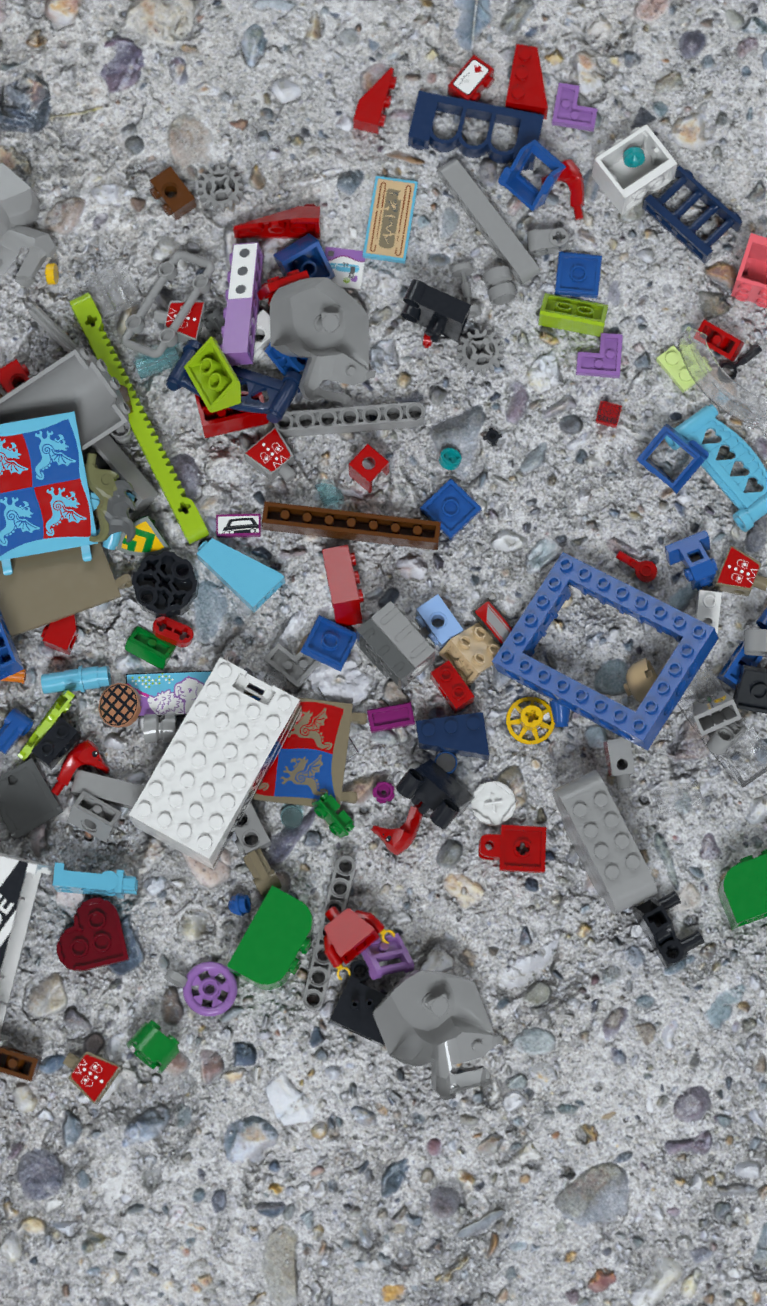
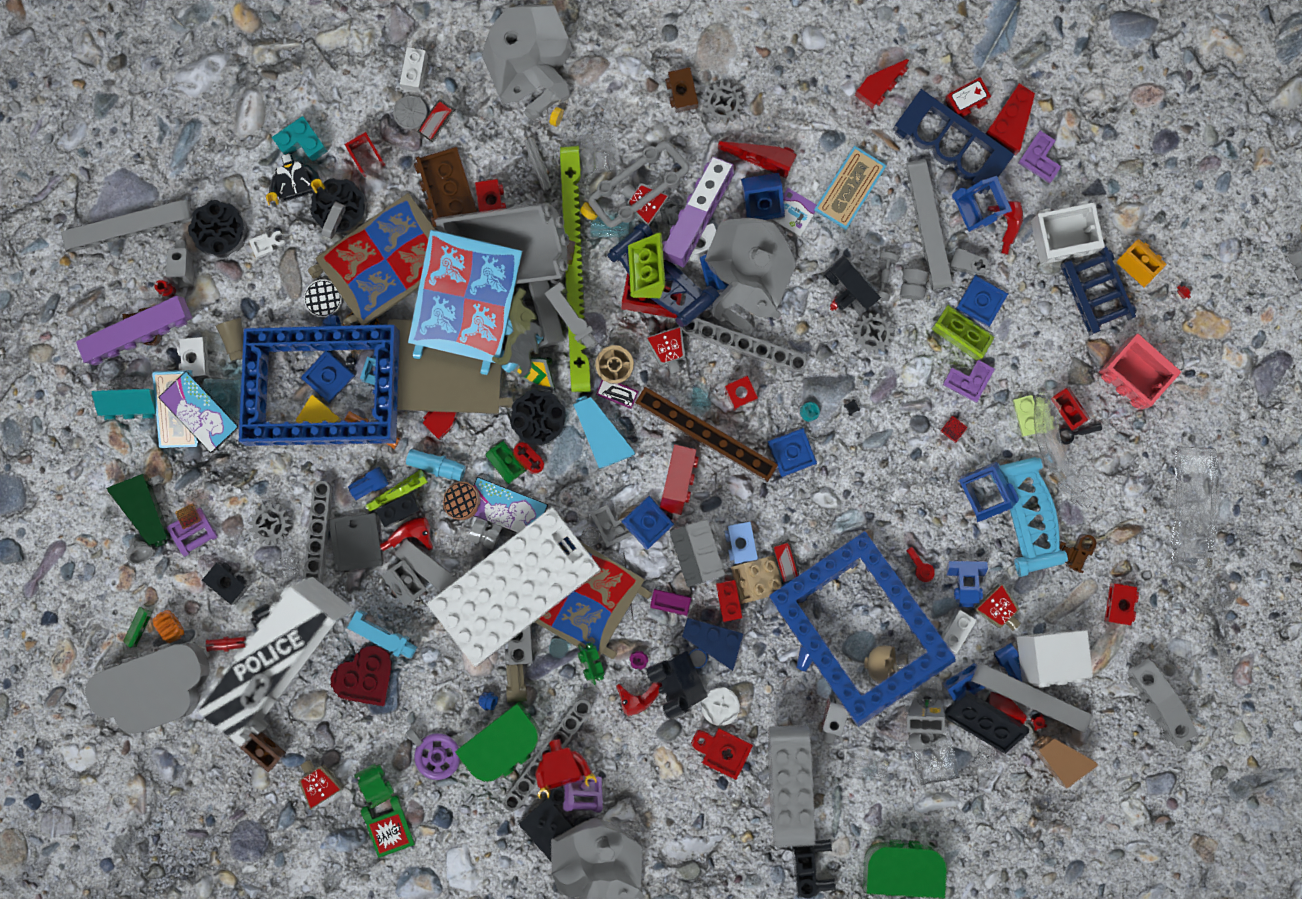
camera: 25 degrees right, 10 degrees up
(127, 354) = (588, 212): none -> yellow tile
(150, 459) = (583, 332): none -> light grey hips
(192, 1093) = (388, 831): none -> flag
(222, 494) = (614, 364): none -> tan cylinder
(272, 285) = (735, 210): red plate -> none
(530, 719) = (779, 652): yellow wheel -> none
(633, 157) = (1071, 224): teal tile -> none
(722, 168) = (1141, 262): none -> light orange brick

